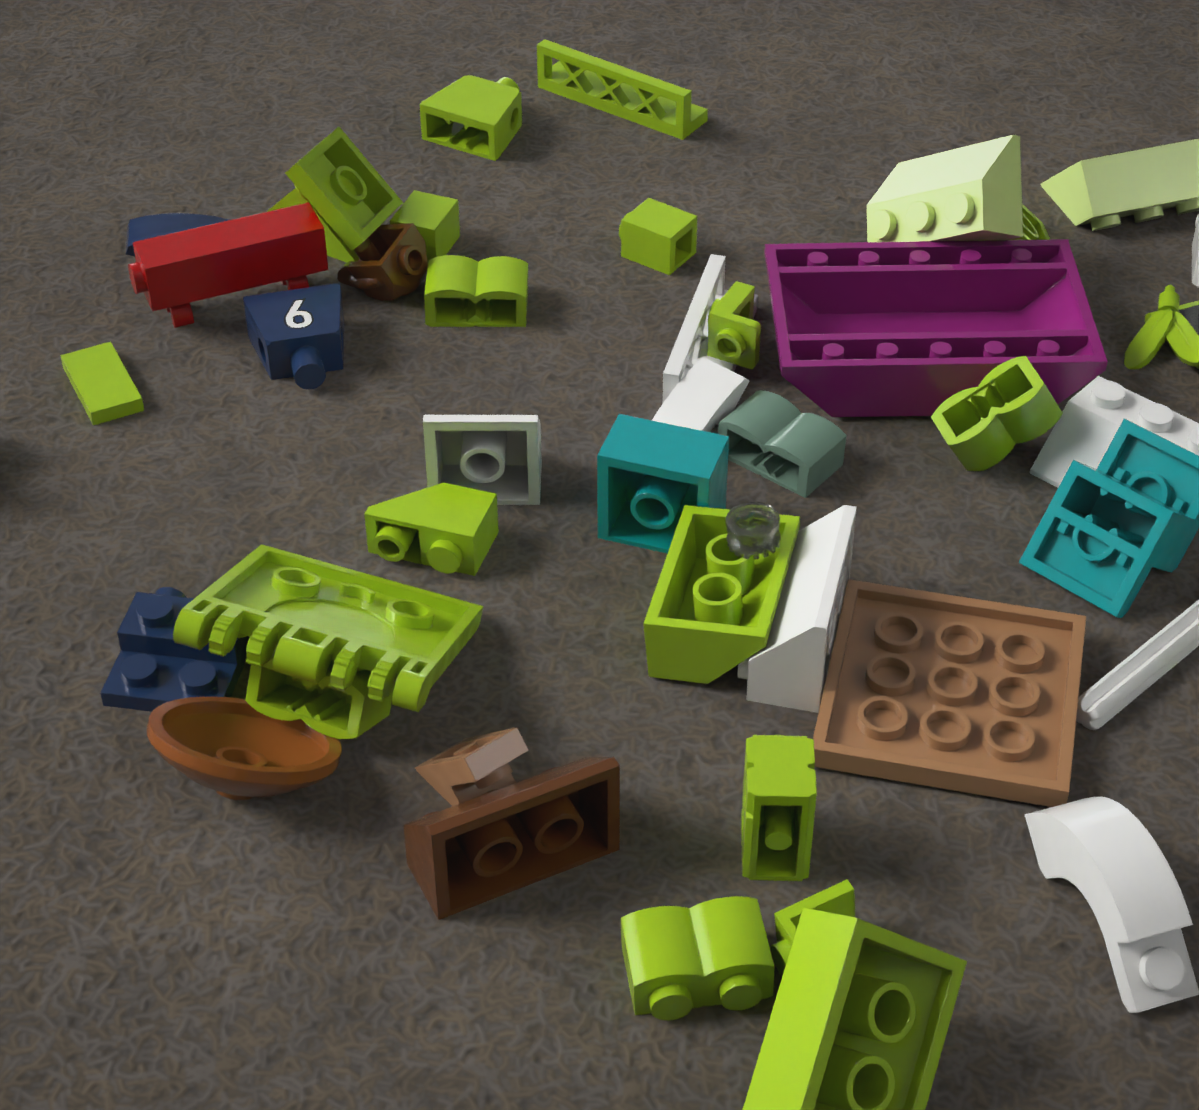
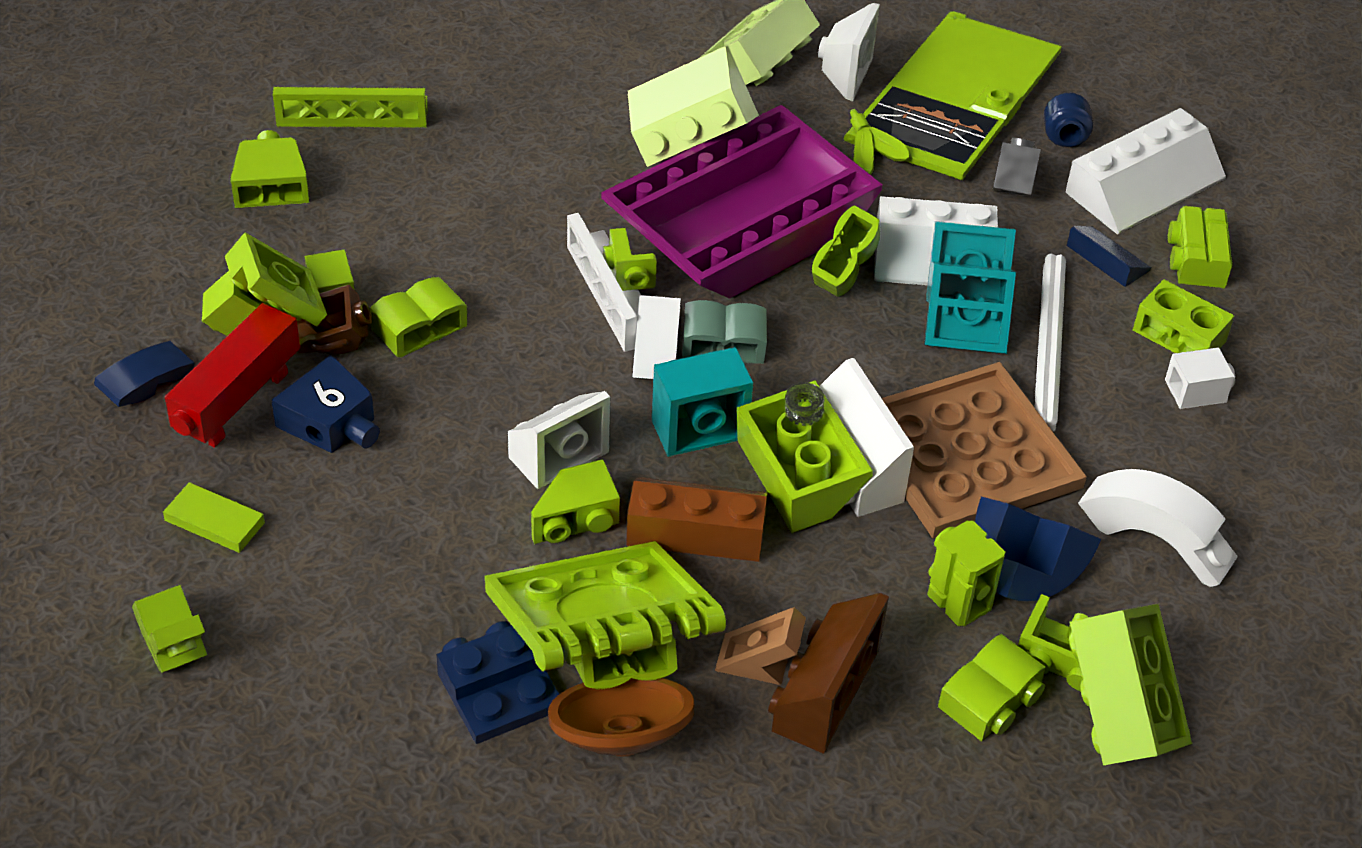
camera: 40 degrees left, 5 degrees up
(549, 603) = (697, 518): none -> dark orange slope
(658, 236) = (497, 214): lime brick -> none
(902, 837) = (1038, 551): none -> dark blue brick

